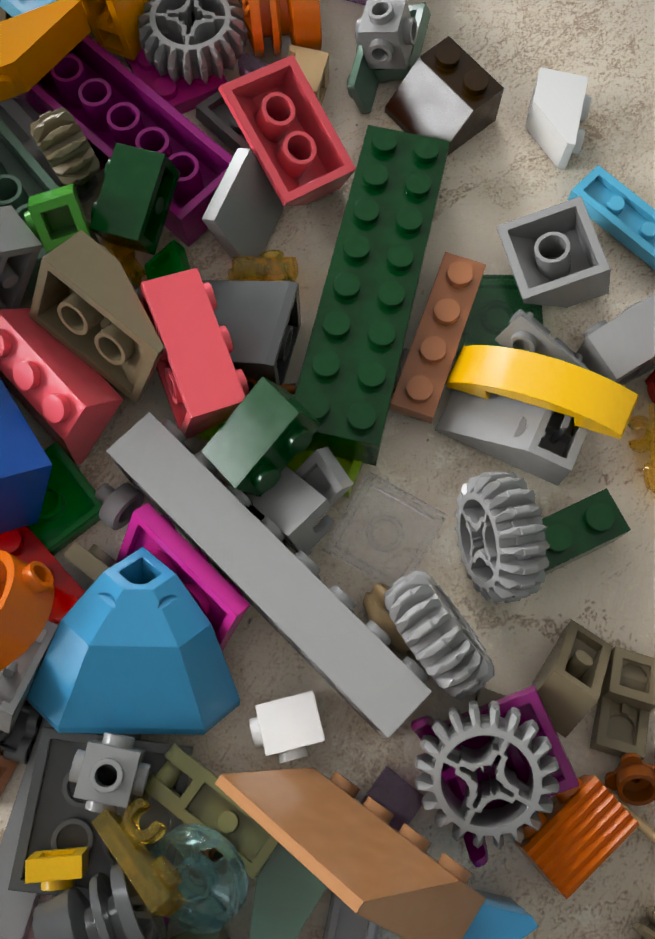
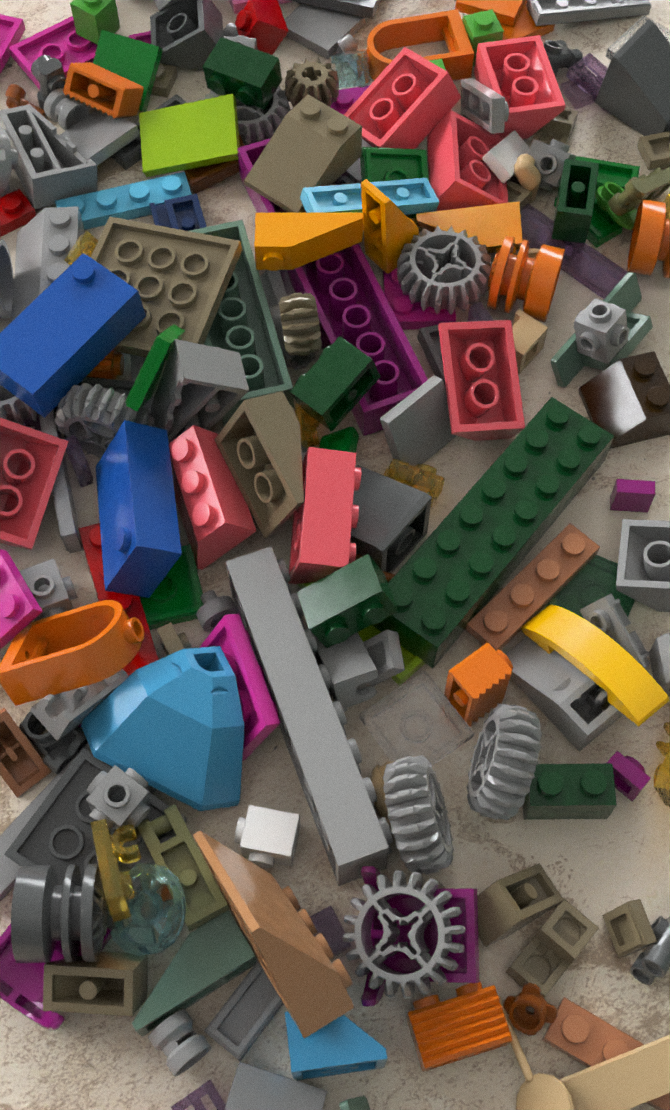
camera: 25 degrees right, 10 degrees down
(56, 216) = (269, 373): bright green brick -> none
(57, 867) = (48, 850): yellow plate -> none
(434, 461) = (478, 683): none -> orange brick
(491, 197) = (632, 495): none -> magenta tile
(622, 487) = (628, 775): none -> magenta plate

